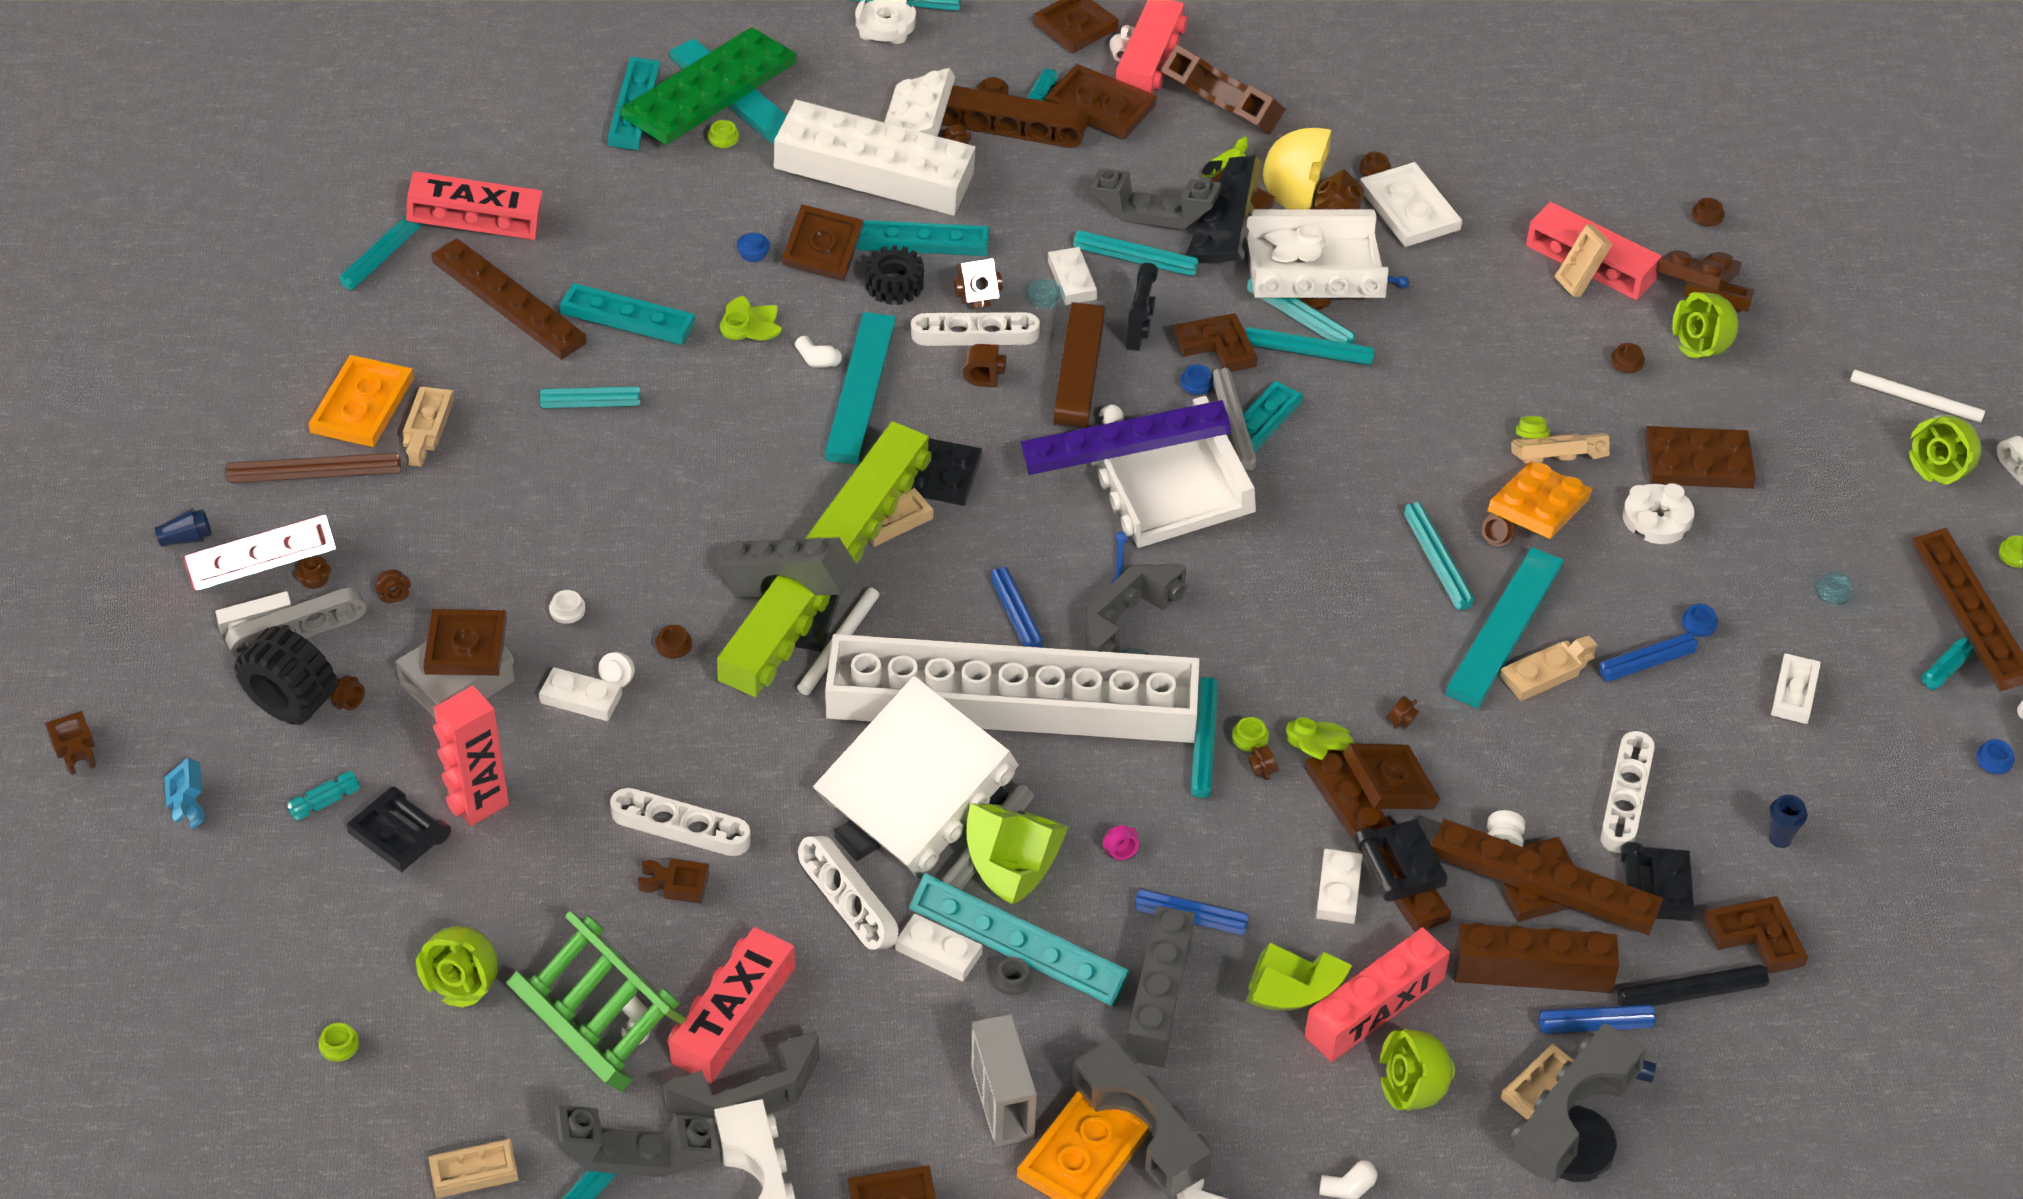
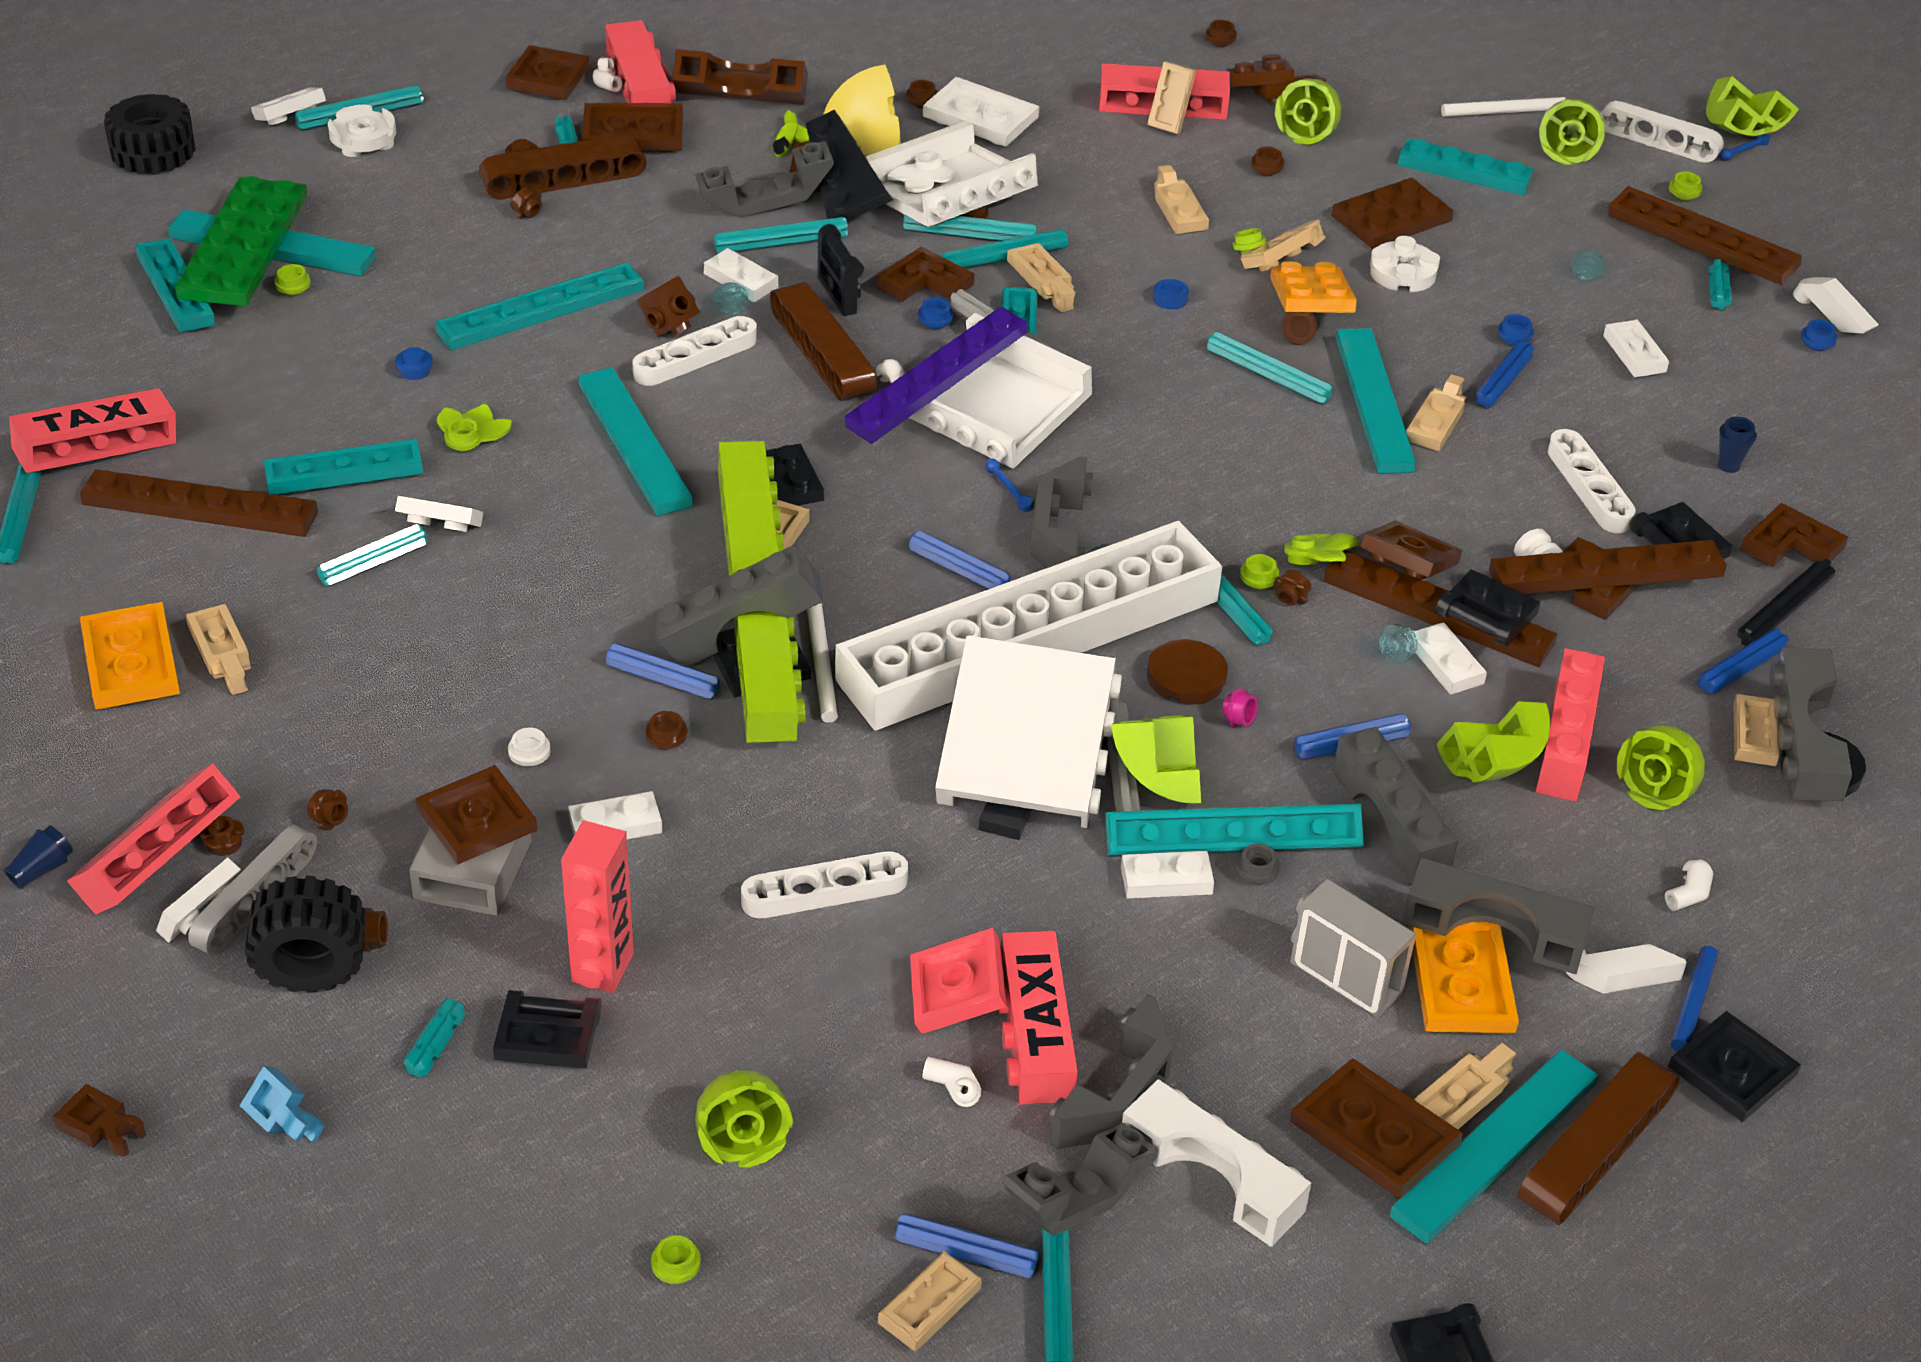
camera: 35 degrees left, 5 degrees down
(313, 467) = (129, 740): reddish brown axle -> none
(535, 1144) = (967, 1245): none -> axle
(560, 1014) = (930, 1120): bright green fence -> none
(616, 668) = (636, 777): white plate -> none
(655, 379) = (423, 511): none -> white plate
(679, 882) = (877, 932): reddish brown plate -> none
(697, 946) = (957, 980): none -> coral plate
(713, 592) = (663, 671): none -> axle
(817, 356) = (566, 430): white arm -> none
(823, 242) = (486, 330): reddish brown plate -> none
(843, 898) = (1046, 870): white beam -> none
(874, 157) = (469, 241): white brick -> none
(894, 262) = (578, 334): black tyre -> none
(921, 102) = (471, 190): white plate -> none
(984, 365) = (736, 373): reddish brown plate -> none
(1111, 790) = (1187, 671): none -> reddish brown tile
(1303, 852) = (1398, 643): none -> clear light blue plate
(1320, 383) = (1044, 275): none -> tan hinge
(1339, 192) = (920, 119): reddish brown brick -> none
(1403, 712) = (1364, 498): reddish brown plate -> none
(1419, 449) = (1170, 294): none -> blue tile
(1508, 365) = (1179, 203): none -> tan hinge
(1536, 957) = (1662, 633): reddish brown brick -> none
(1817, 441) = (1465, 166): none -> teal plate

